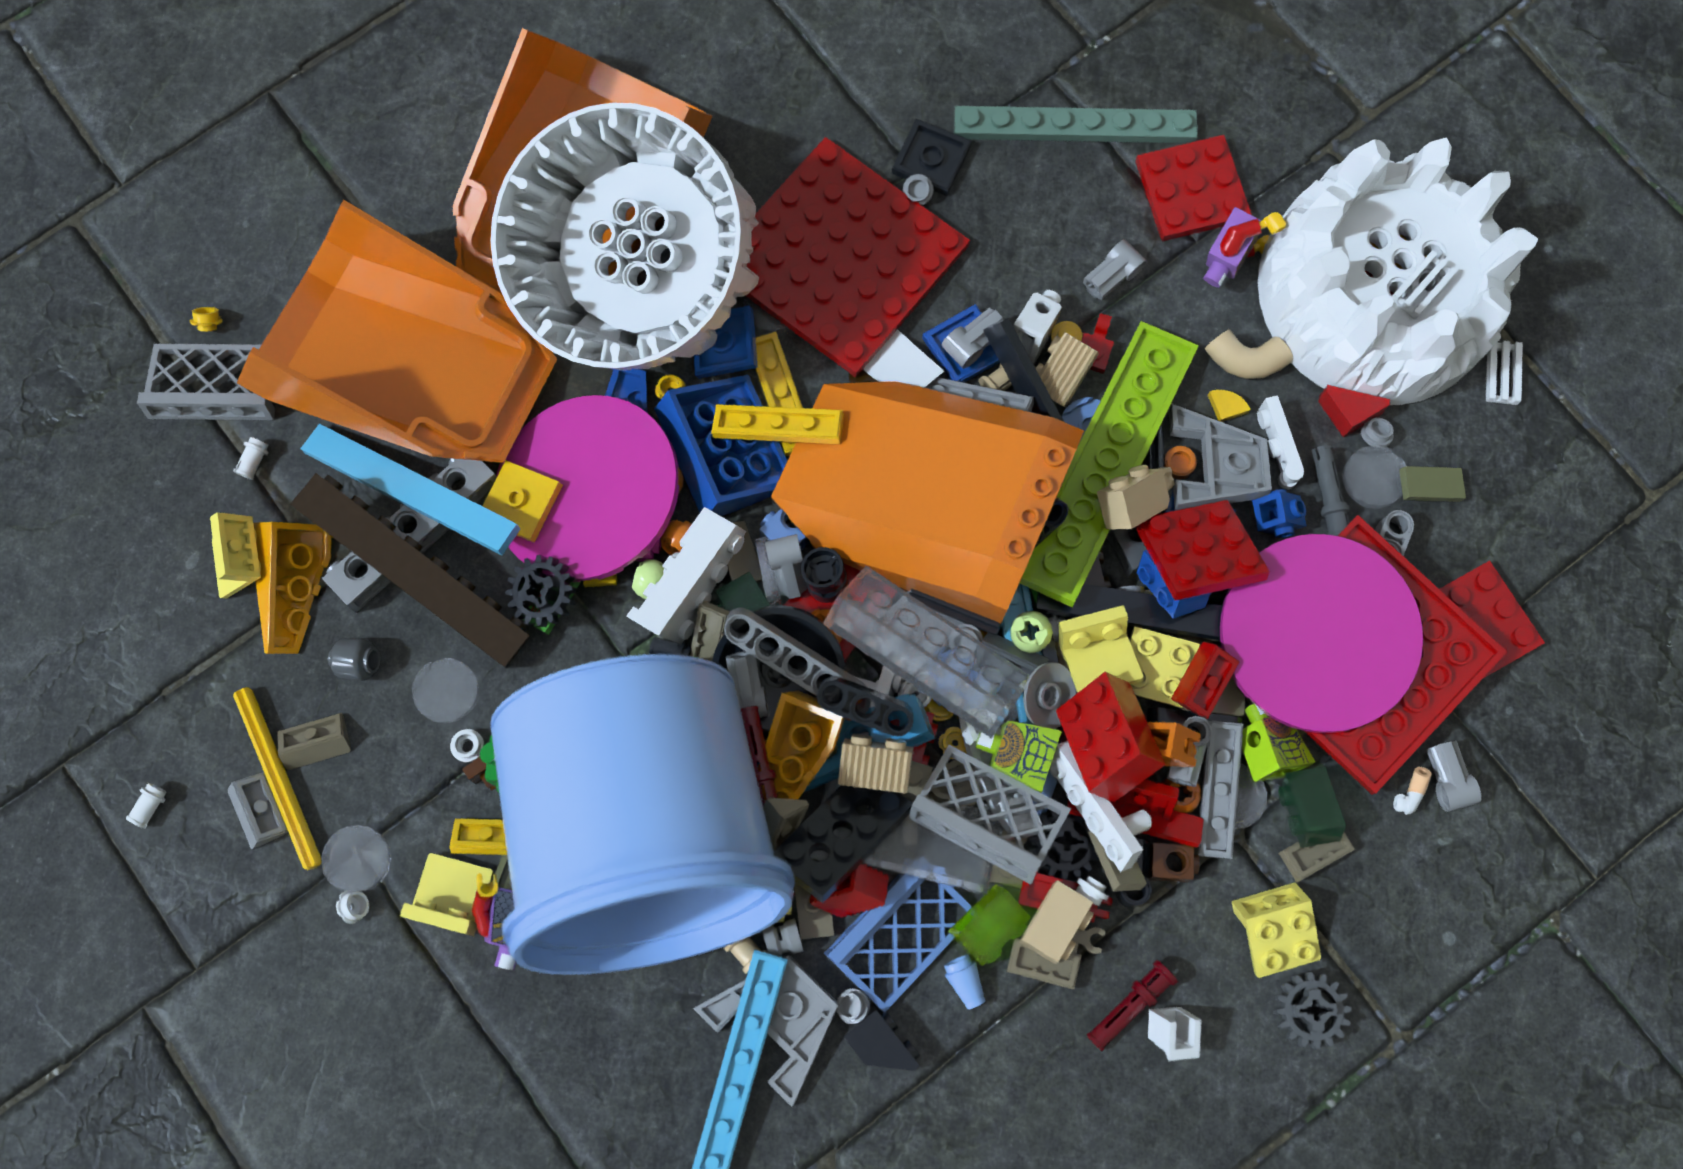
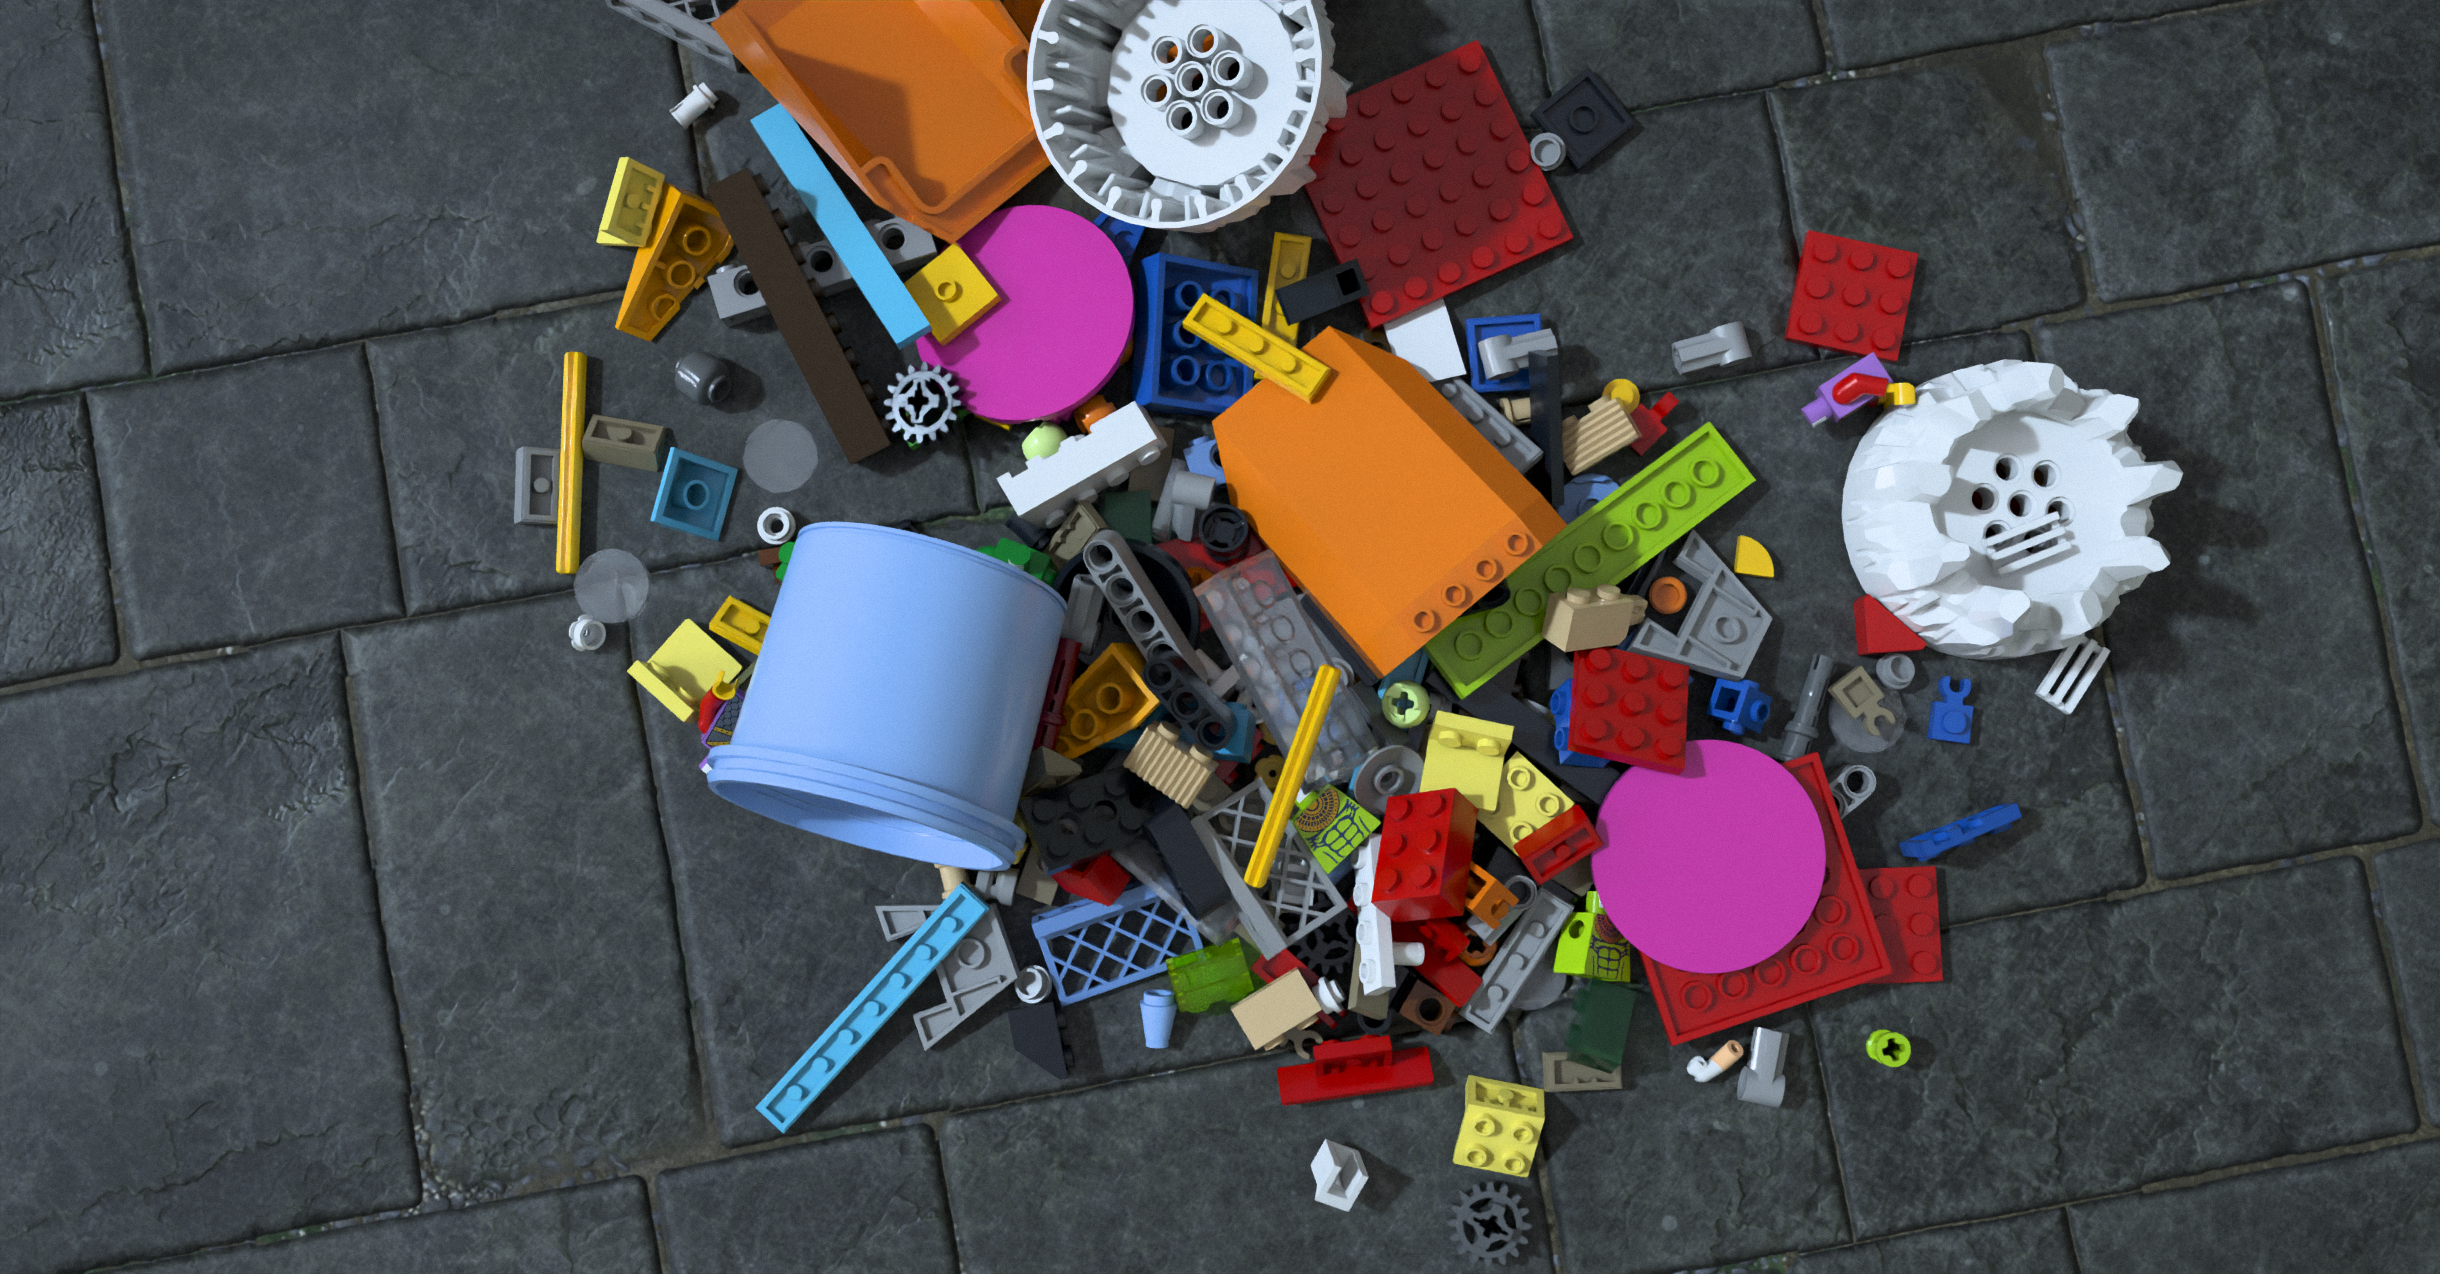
camera: 25 degrees right, 10 degrees up
(146, 805) = (429, 426): white pin -> none
(389, 753) = (693, 494): none -> medium azure slope
(667, 382) = (1169, 237): yellow plate -> none
(734, 346) = (1258, 236): blue plate -> none
(805, 363) = (1322, 292): none -> black slope
(927, 835) = (1186, 861): none -> black beam
(976, 724) = (1292, 775): none -> yellow axle
(1032, 965) = (1230, 1035): dark tan plate -> none
(1038, 321) = (1593, 370): white torso -> none
(1075, 124) = (1761, 159): sand green plate -> none
(1141, 942) = (1354, 1070): none -> red bracket
(1143, 994) = (1328, 1121): dark red pin -> none
(1247, 361) = (1801, 525): tan cylinder -> none
(1280, 442) = (1785, 629): white plate -> none
(1363, 462) = (1858, 696): none -> dark tan plate
(1432, 484) = (1922, 755): olive tile -> none
(1435, 448) = (1950, 718): none -> blue plate
(1493, 526) = (1960, 832): none -> blue wing
(1545, 709) = (1897, 1056): none -> lime bush

